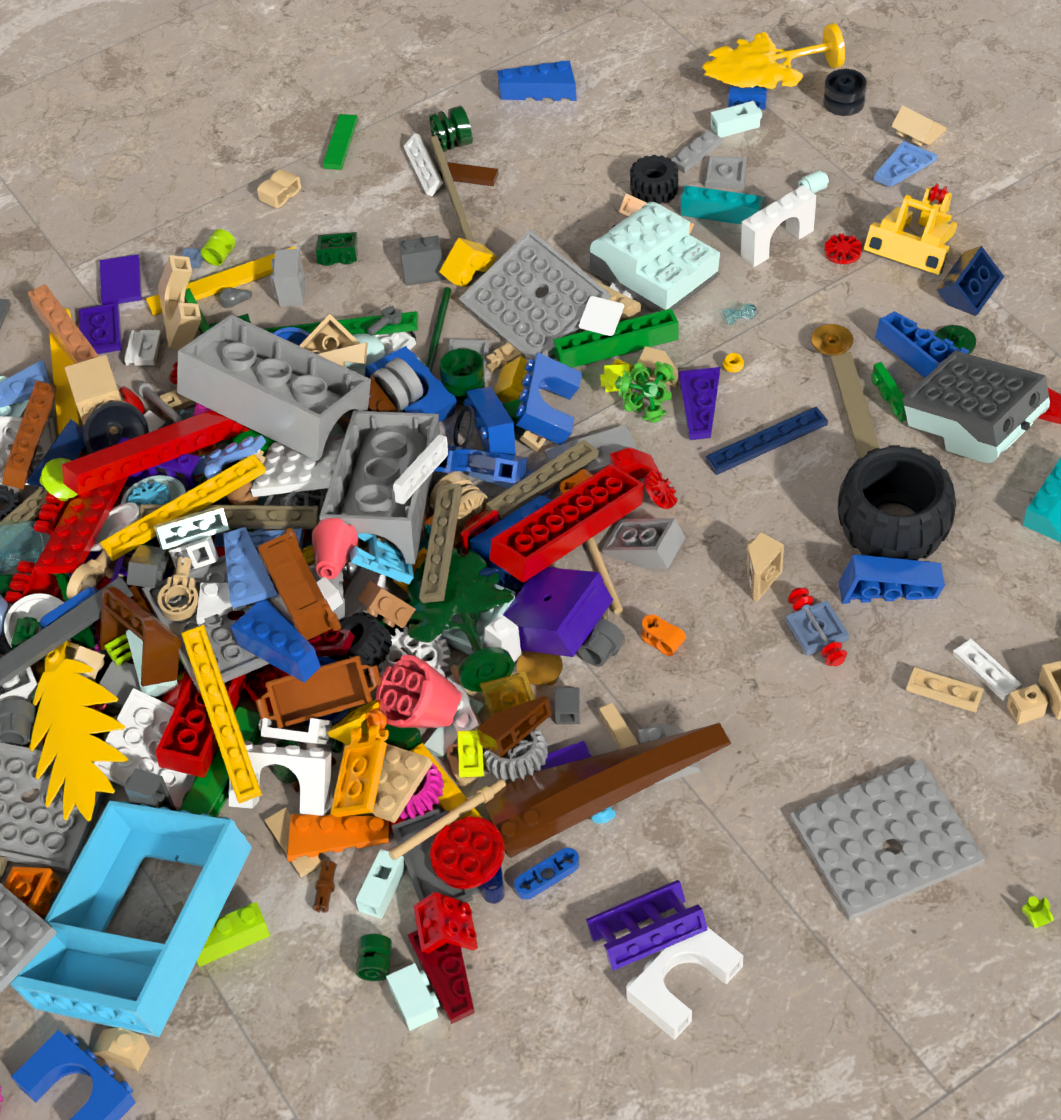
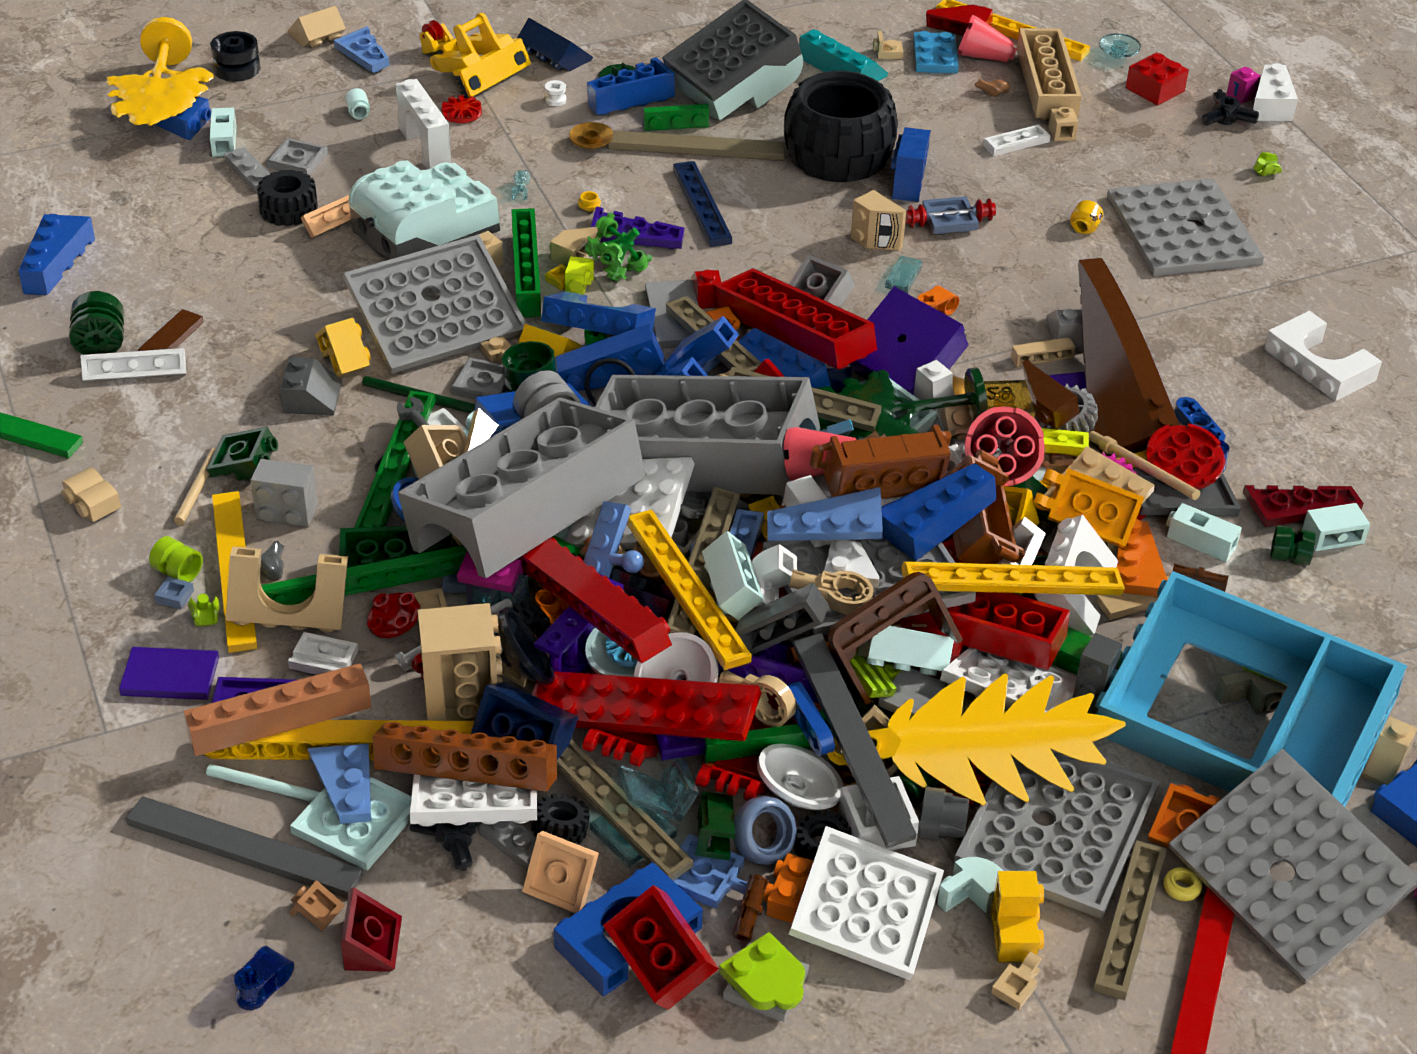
camera: 85 degrees left, 10 degrees down
(24, 630) = (825, 774): dark green brick -> none
(31, 345) = (261, 783): none -> light aqua bar
(53, 480) = (582, 709): lime dish -> none
(295, 238) = (194, 491): none -> tan bar
(376, 717) = (1034, 480): orange plate -> none
(420, 469) = (730, 365): white plate -> none
(444, 921) = (1263, 489): red bracket -> none
(451, 189) = (217, 342): dark tan tile -> none
(567, 705) = (1006, 370): dark grey brick -> none
(601, 316) = (504, 251): white sticker -> none
(652, 938) = (1288, 341): dark purple fence -> none
(659, 489) = (741, 266): red wheel -> none
(710, 607) = (904, 273): none -> clear light blue tile
(719, 204) = (355, 161): teal slope -> none
(856, 743) = (1086, 217): none -> yellow head
(893, 301) = (555, 93): none -> white wheel
(945, 689) = (1036, 162): tan plate -> none

